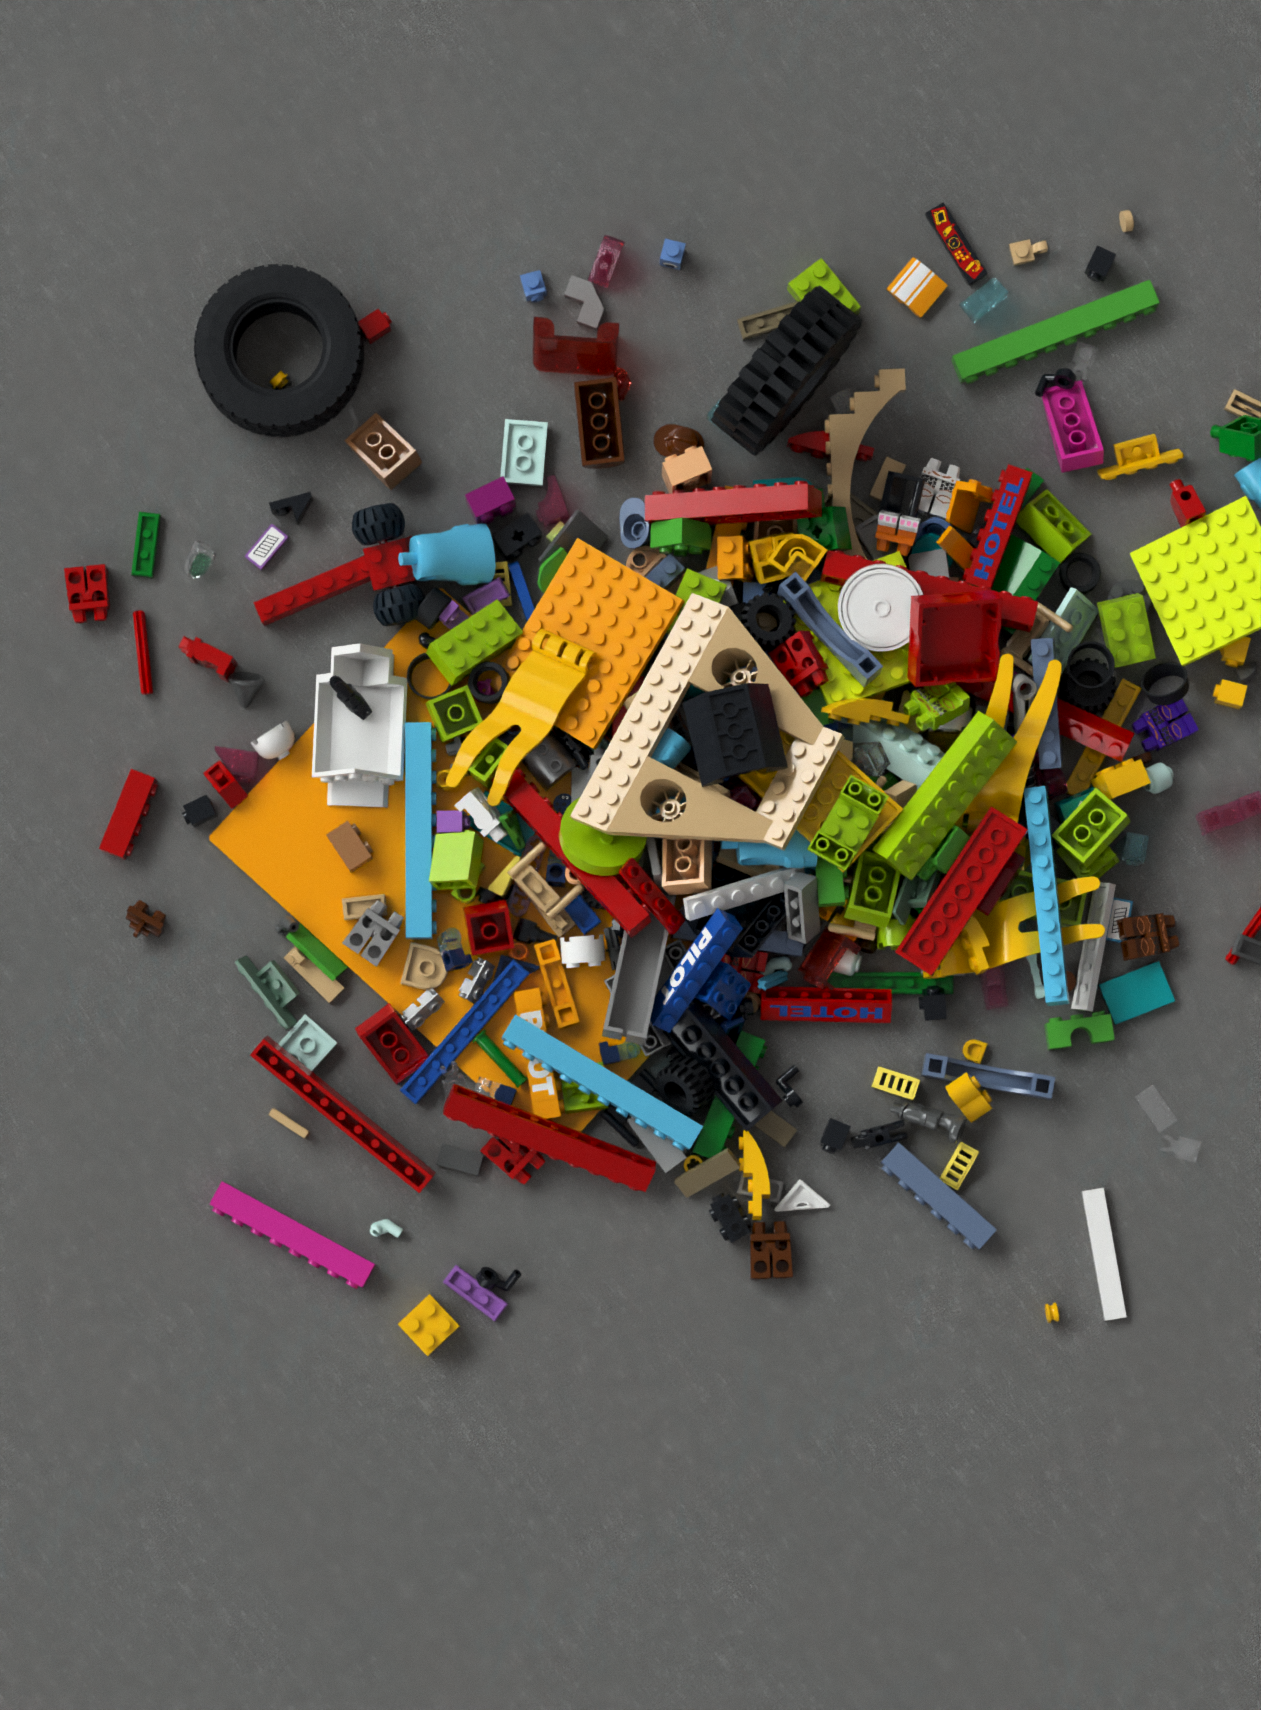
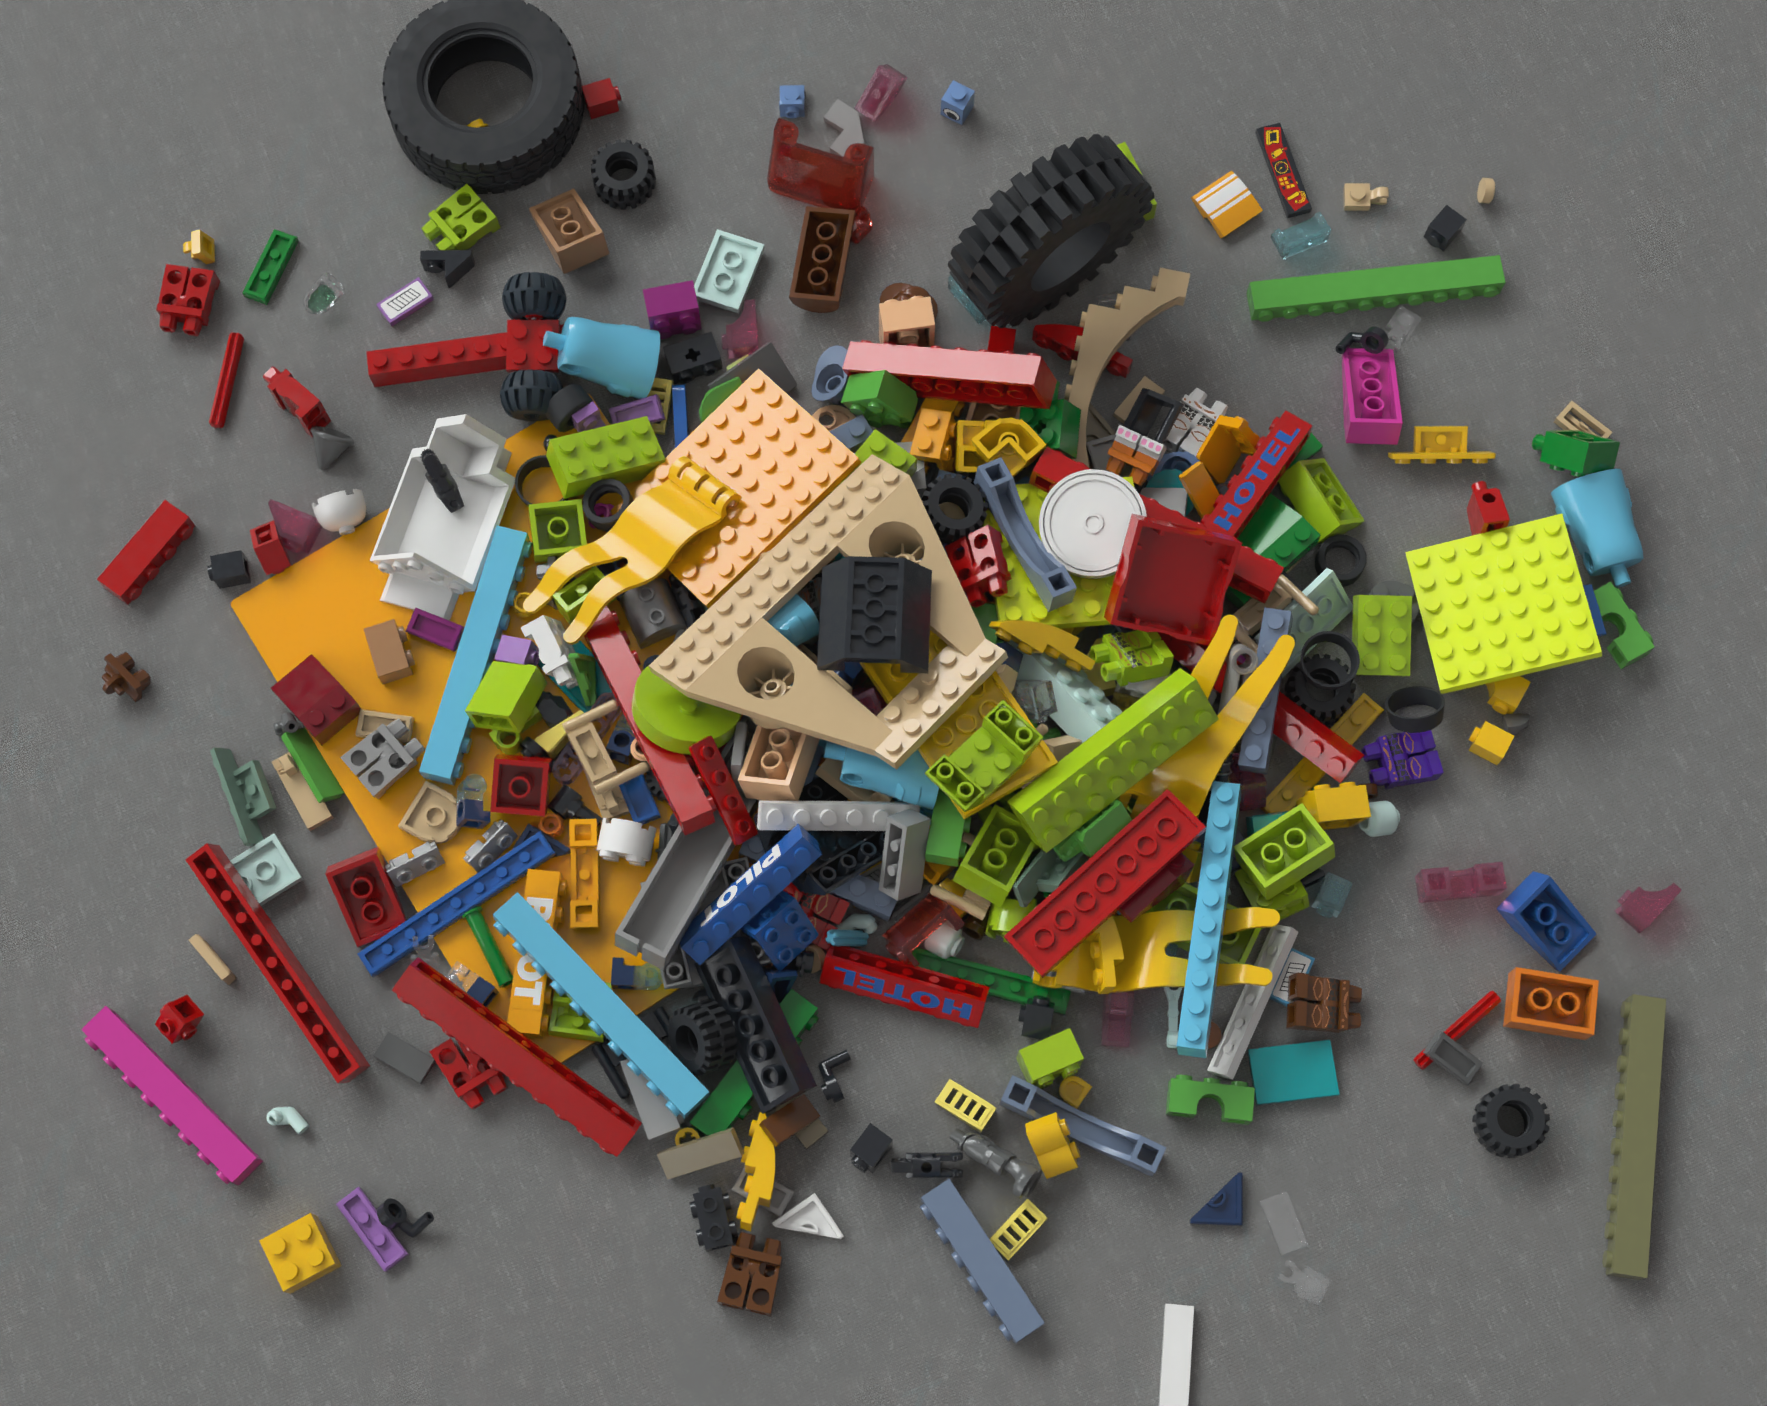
camera: 15 degrees right, 10 degrees down
(84, 545) = (201, 247): none -> yellow tile
(280, 1176) = (179, 1019): none -> red brick
(291, 466) = (460, 221): none -> lime hips
(303, 898) = (316, 699): none -> dark red slope
(379, 818) = (435, 629): none -> magenta tile
(414, 373) = (617, 157): none -> black tyre
(494, 860) = (553, 709): none -> black rock
(765, 463) = (1001, 339): none -> red brick
(767, 1130) = (789, 1120): none -> reddish brown tile
(951, 1032) = (1050, 1059): none -> lime brick
(1108, 1108) = (1224, 1207): none -> dark blue tile

